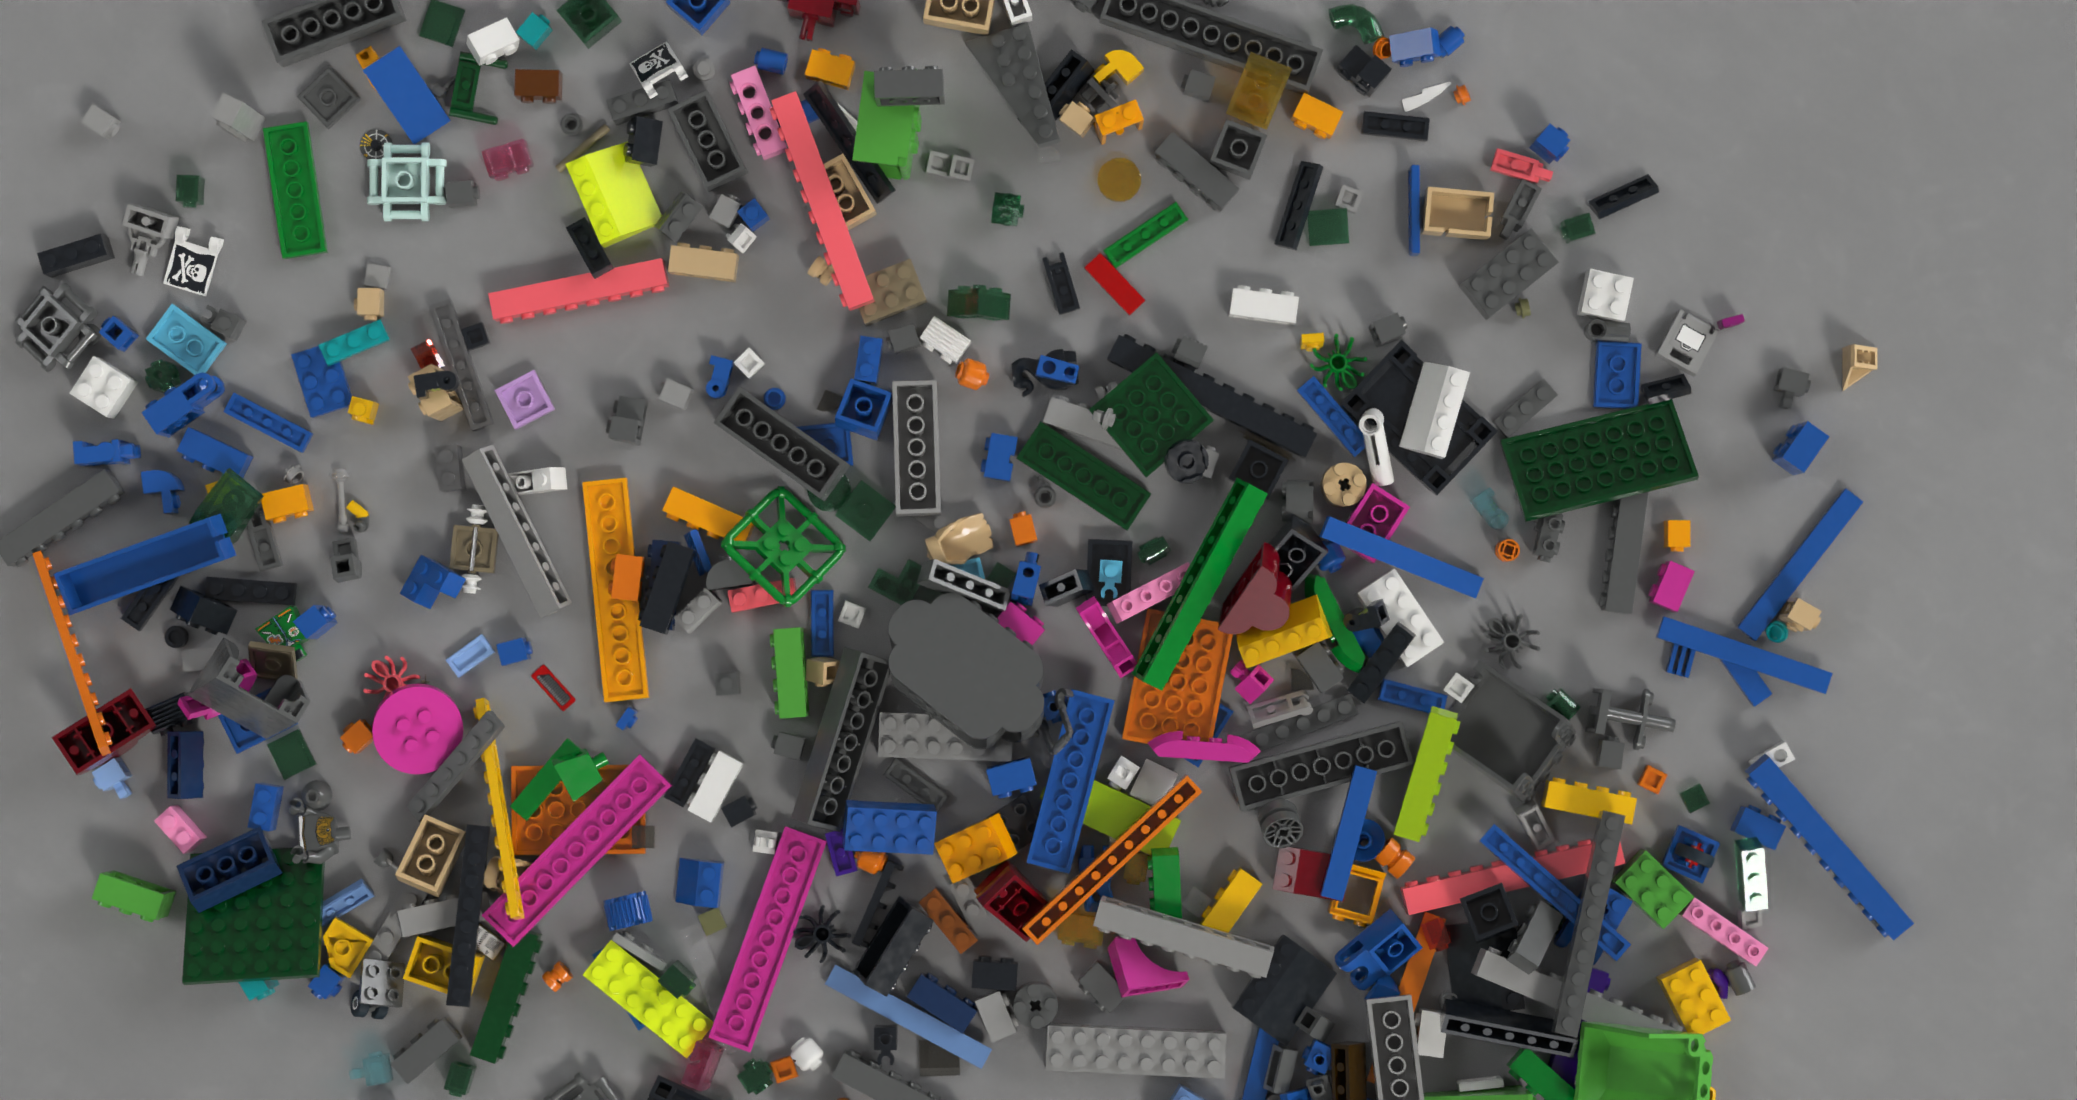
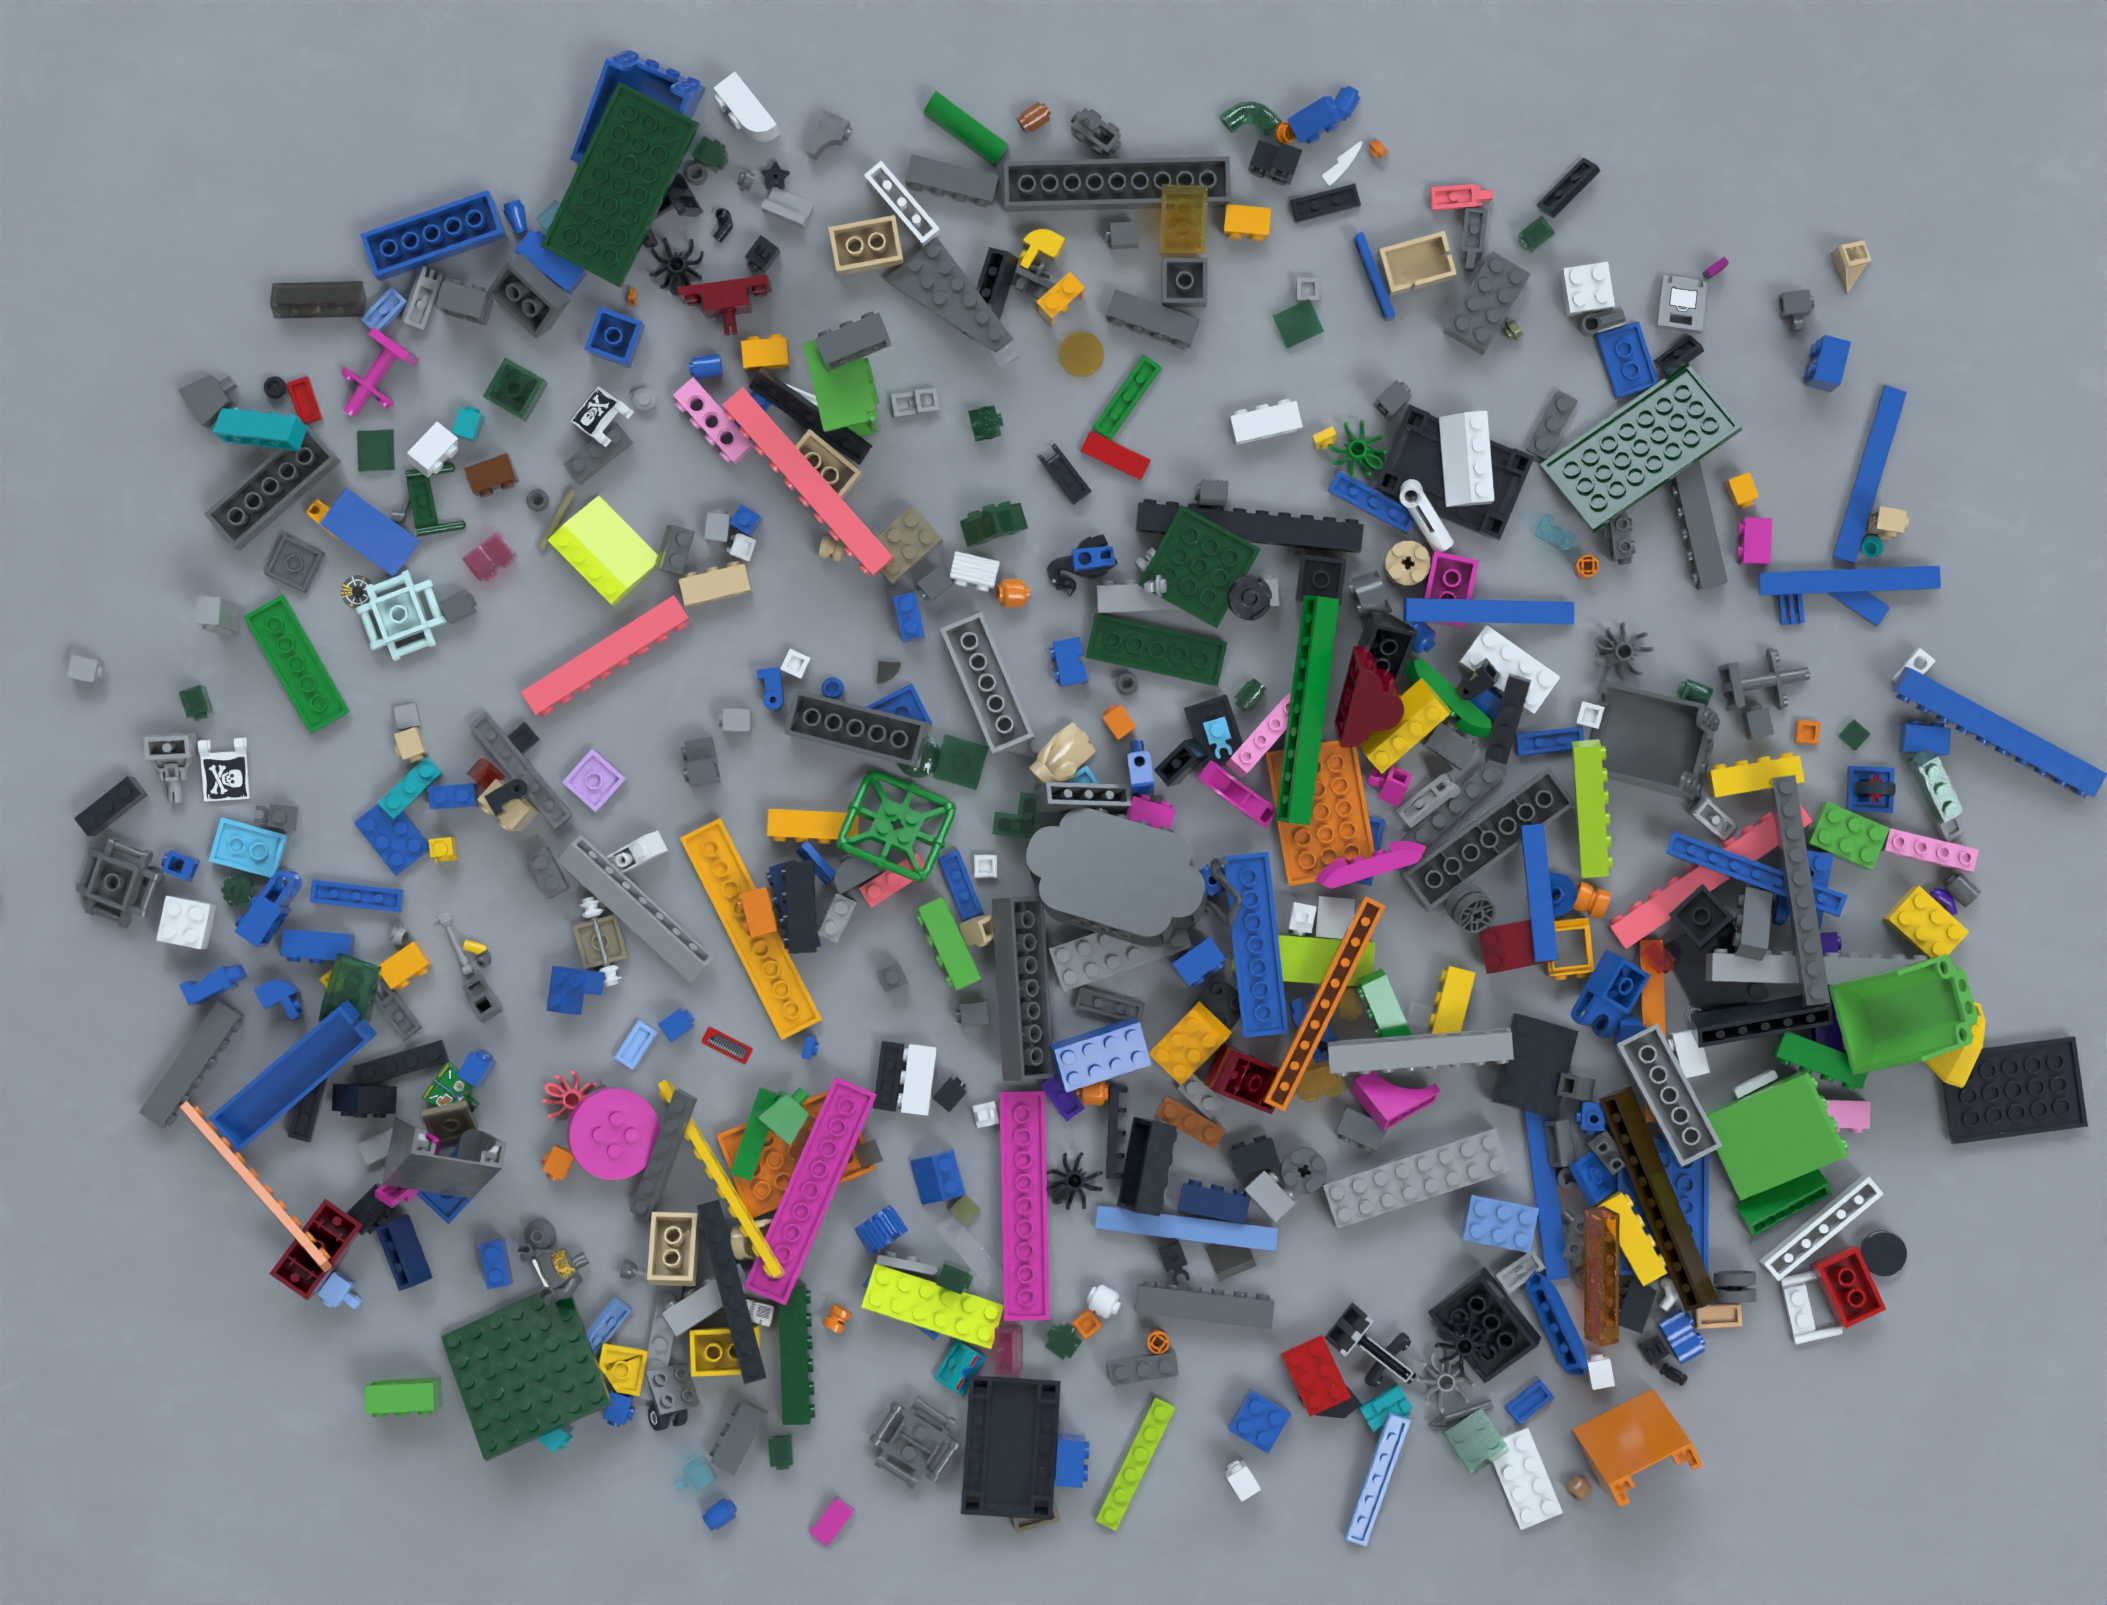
camera: 20 degrees left, 0 degrees up
(176, 636) = (347, 1134): black tile -> none
(180, 829) = (422, 1316): bright pink brick -> none
(229, 869) = (485, 1335): dark blue slope -> none
(291, 754) = (501, 1204): clear green piece -> none
(390, 365) = (453, 796): none -> blue brick
(589, 248) = (601, 611): black plate -> none
(643, 141) = (613, 490): black brick -> none
(651, 1062) = (958, 1366): none -> teal panel
(707, 141) = (674, 466): dark grey brick -> none
(863, 409) = (922, 666): blue brick -> none
(1001, 575) = (1114, 774): clear green tile -> none
(1077, 118) = (1019, 310): tan brick -> none
(1298, 205) = (1262, 313): black plate -> none
(1551, 144) = (1480, 164): blue brick -> none

